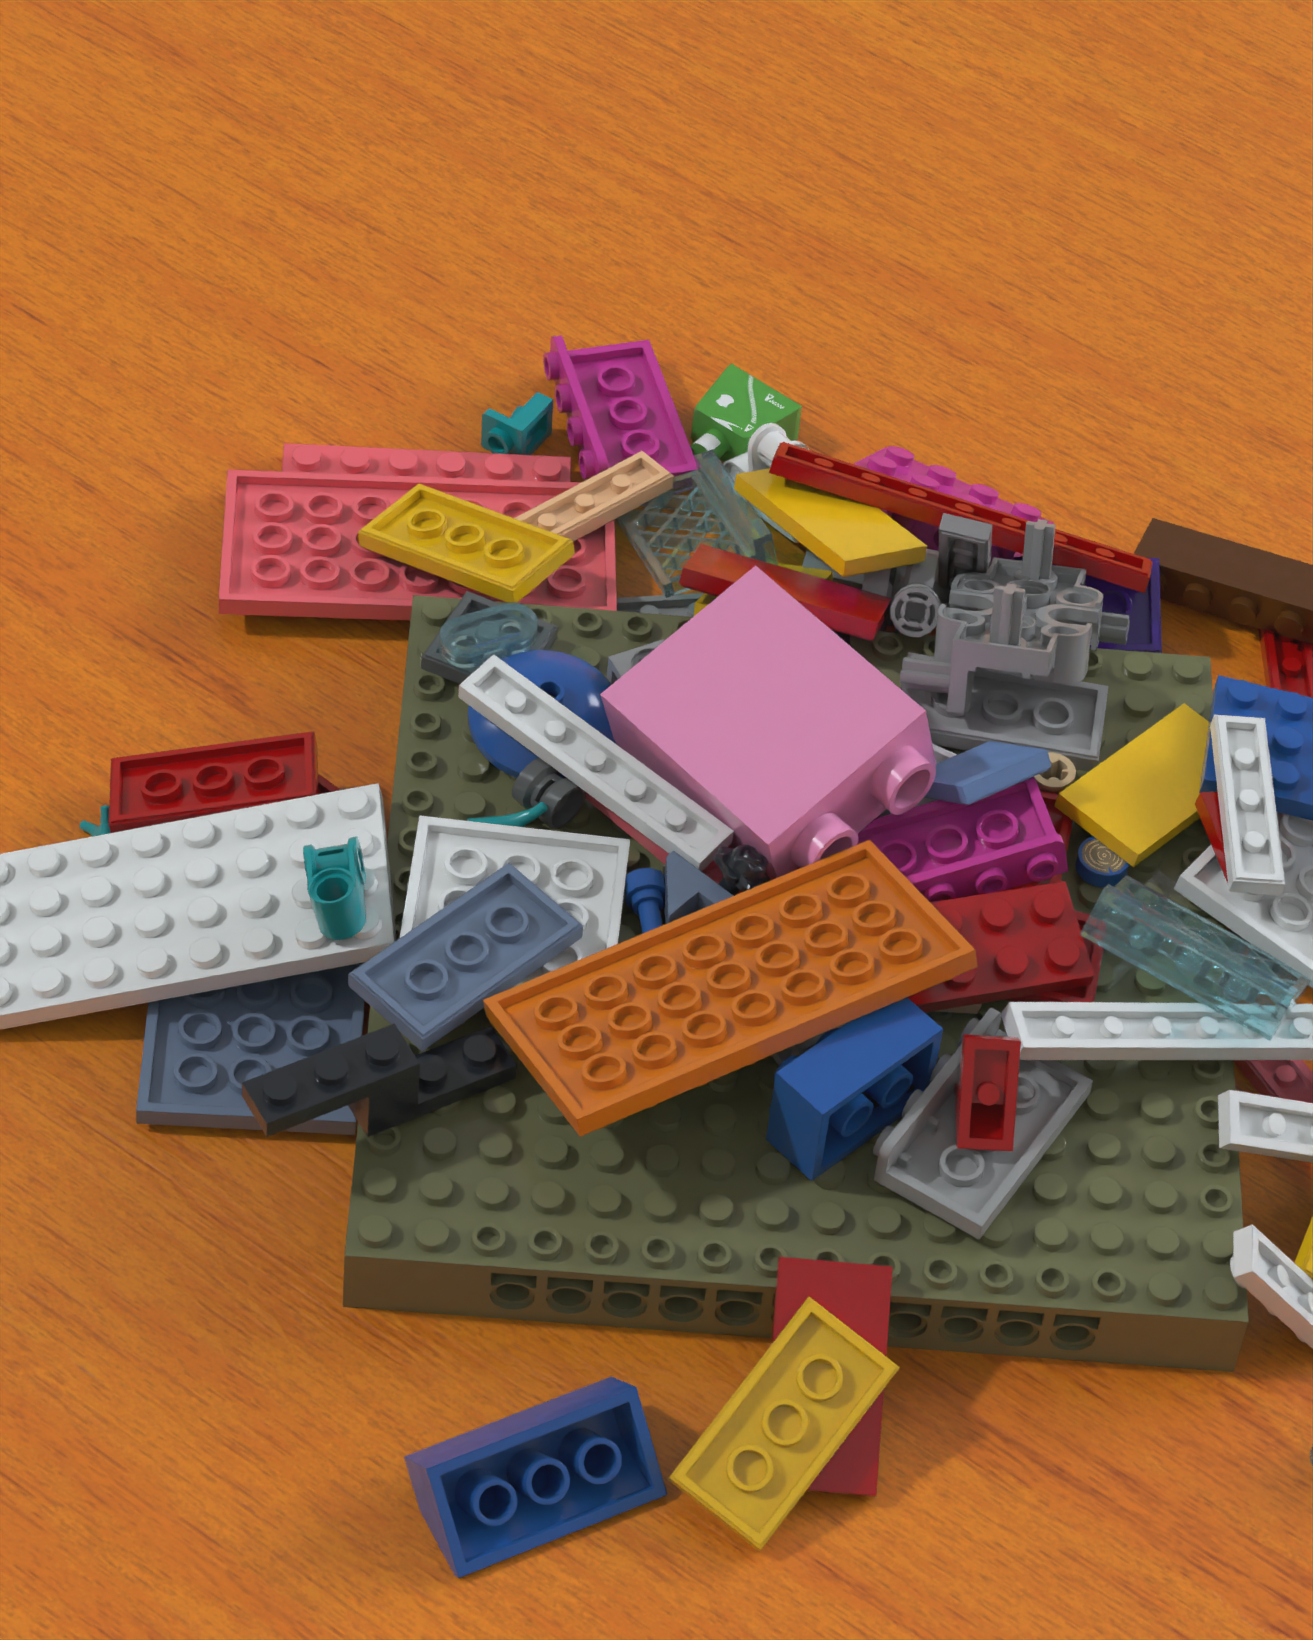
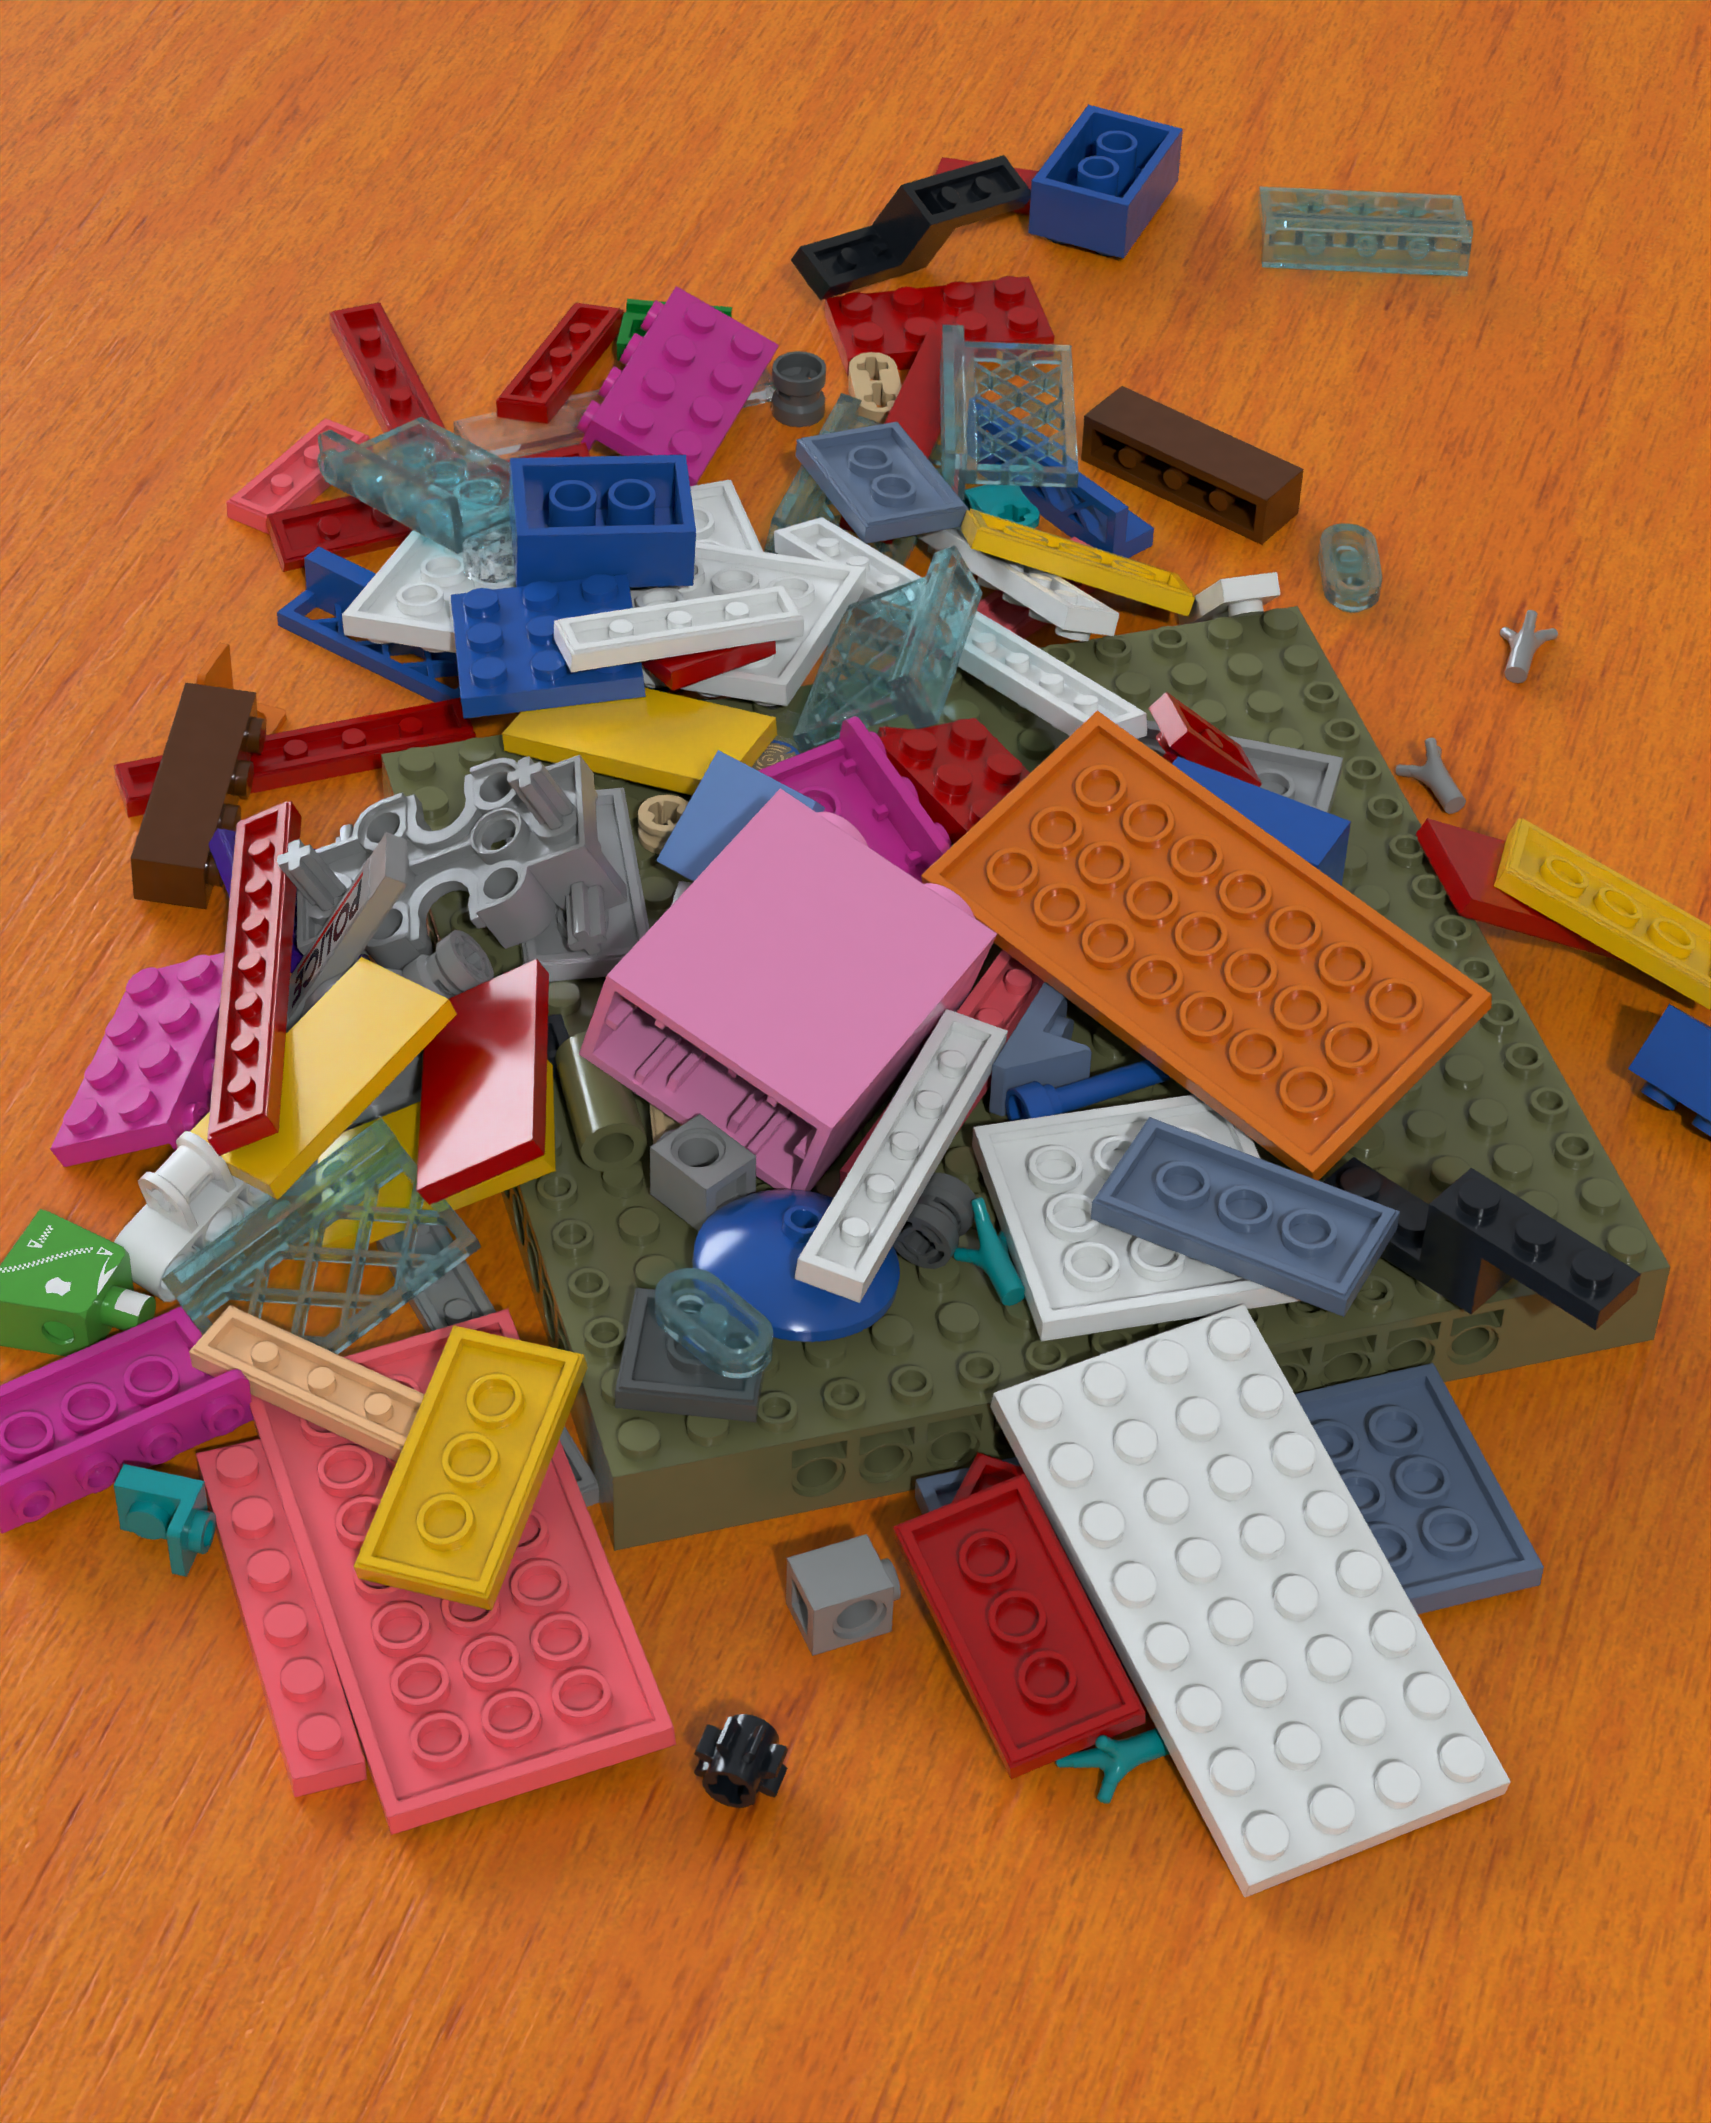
camera: 105 degrees left, 5 degrees down
(187, 637) = (741, 1760): none -> black gear
(303, 711) = (841, 1594): none -> light grey brick
(337, 888) = (1202, 1360): teal piece -> none
(741, 868) = (1000, 992): black plant -> none
(1051, 1417) = (1436, 778): none -> light grey bar
(1219, 1565) = (1524, 646): none -> light grey bar

